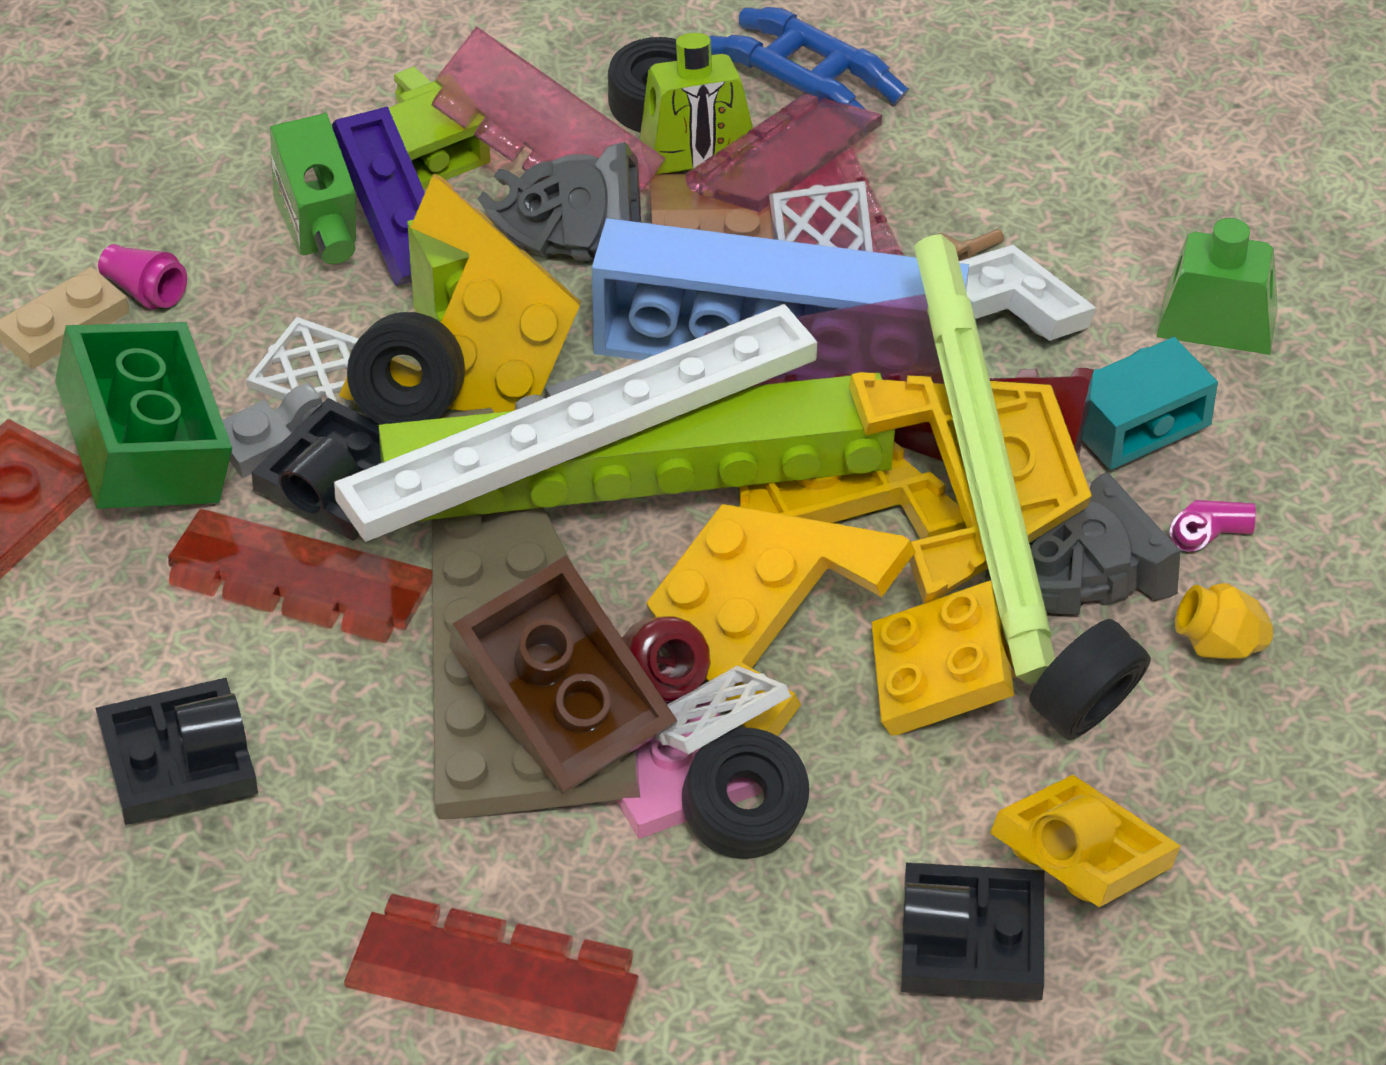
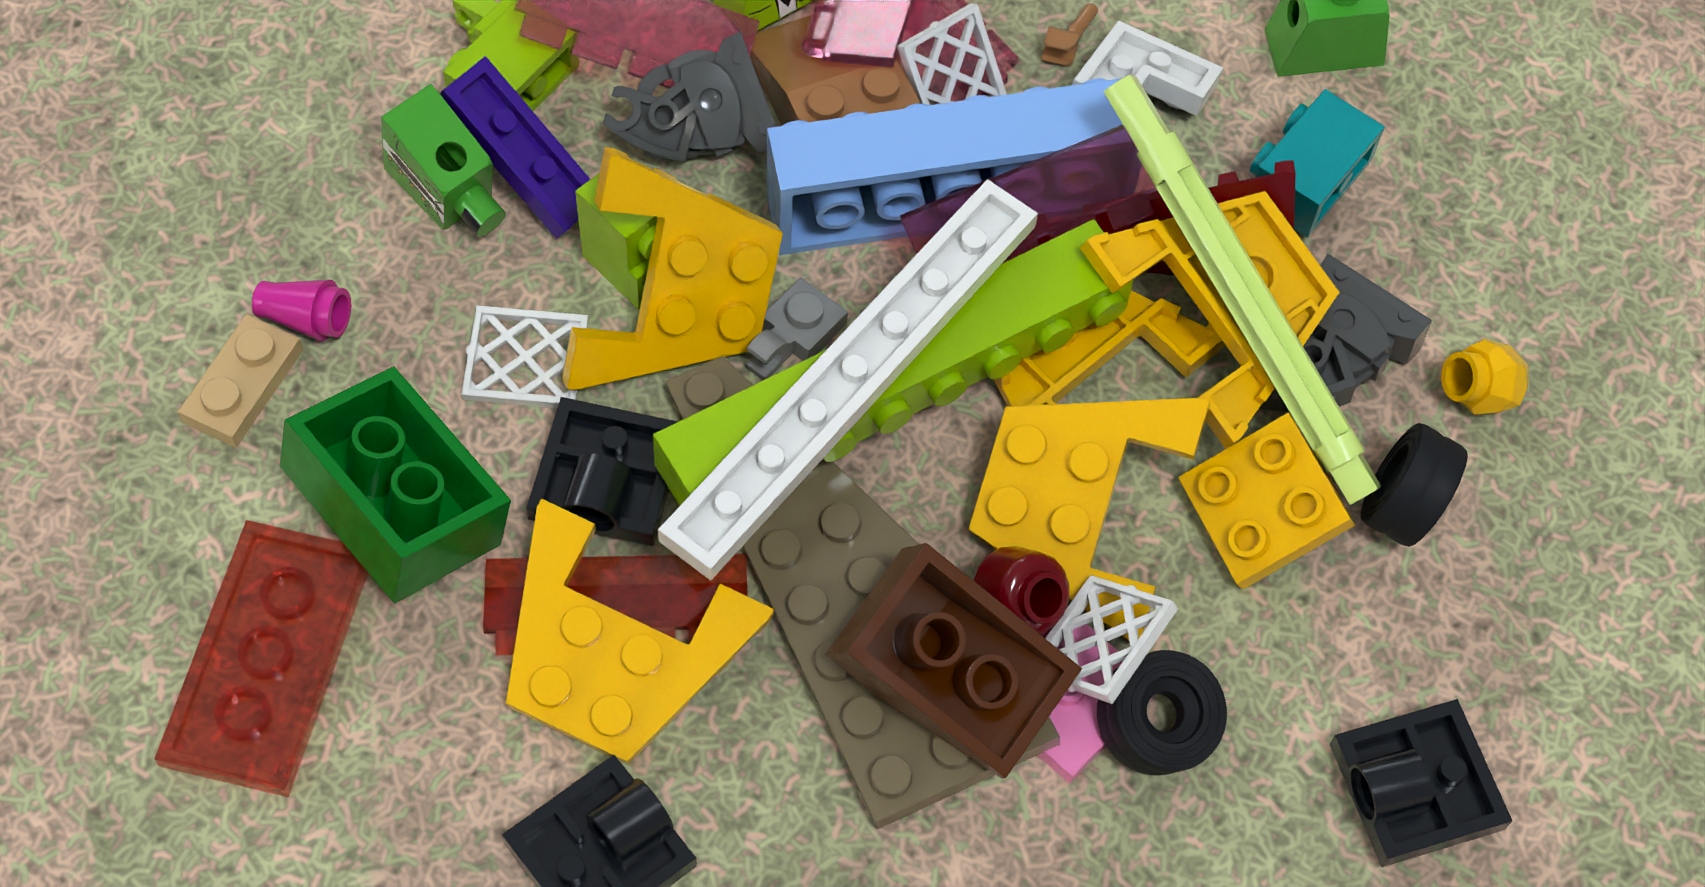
camera: 25 degrees left, 15 degrees up
(254, 616) = (600, 670): none -> yellow wing
(261, 429) = (513, 452): light grey plate -> none
(417, 337) = (640, 386): black tyre -> none
(1085, 840) = (1481, 656): yellow plate -> none
(1207, 519) = (1414, 266): dark pink arm -> none

